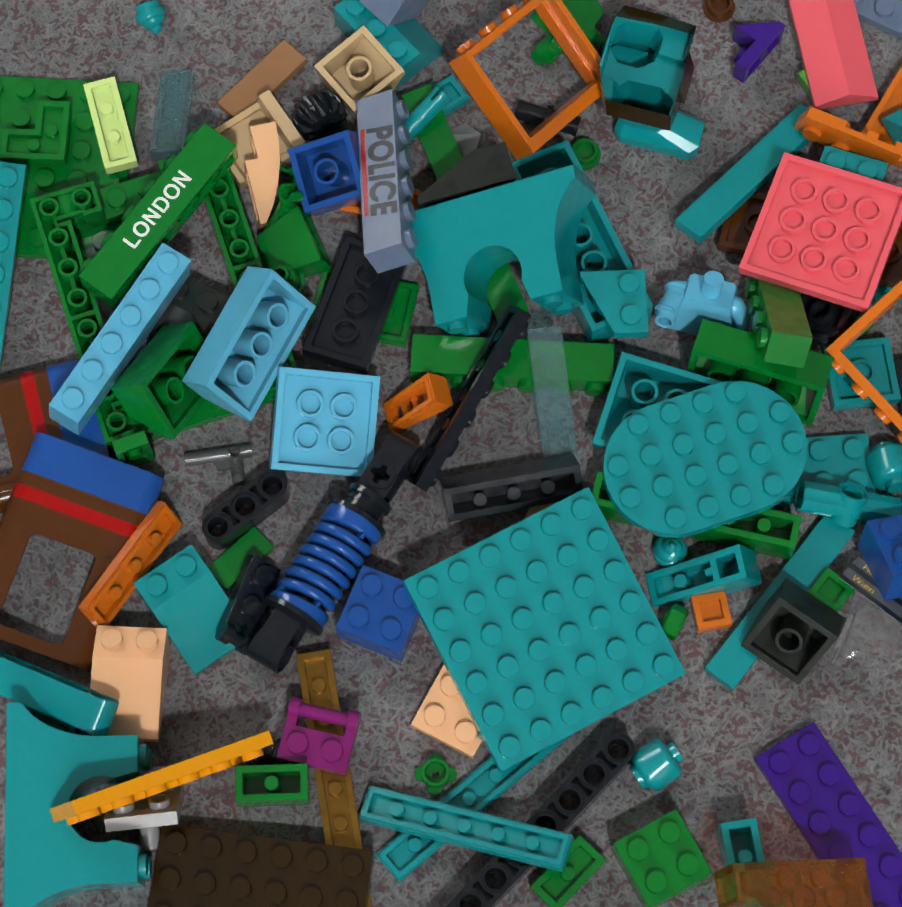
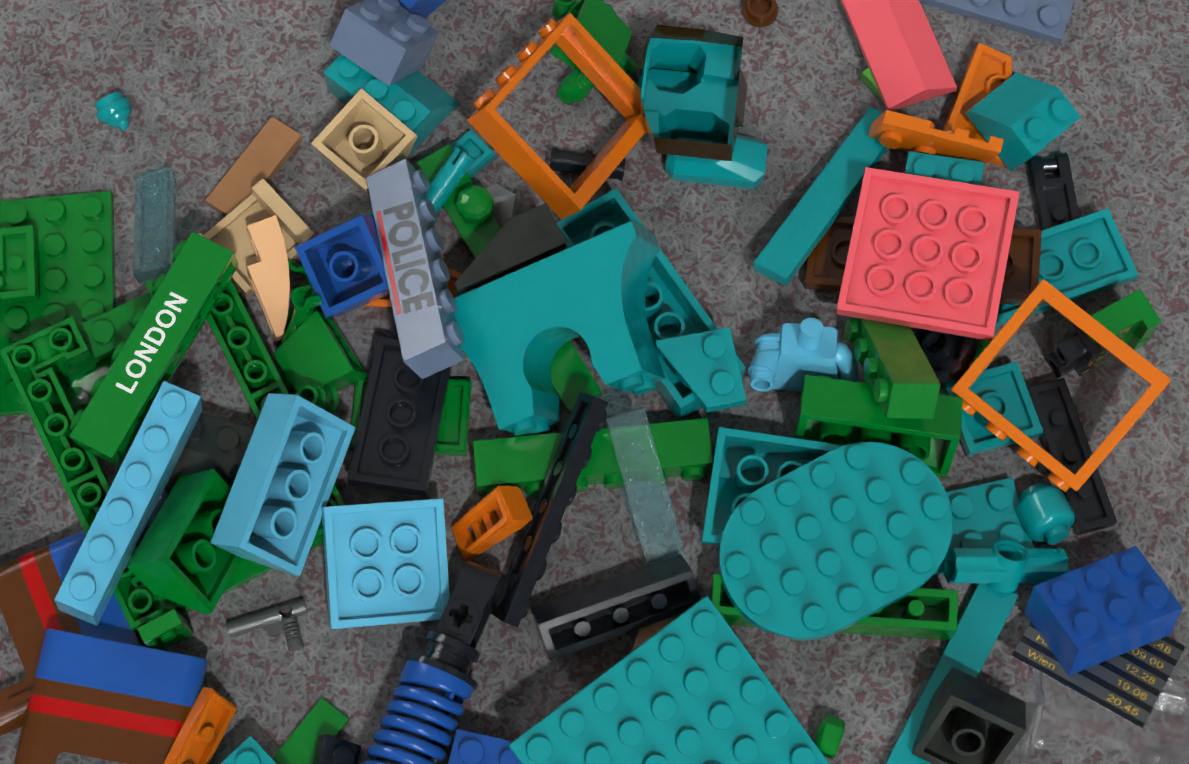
camera: 10 degrees left, 0 degrees up
(110, 125) = (84, 246): yellowish green plate -> none
(253, 495) = (314, 660): black beam -> none
(319, 114) = (325, 199): black gear -> none
(445, 137) = (475, 204): none -> green tile
(587, 153) = (639, 198): green plate -> none
(669, 551) = (810, 655): teal plate -> none
(711, 611) = (870, 717): orange plate -> none
(722, 570) = (855, 677): teal slope -> none
(757, 44) = (810, 45): dark purple slope -> none
(831, 590) = (1003, 670): green plate -> none

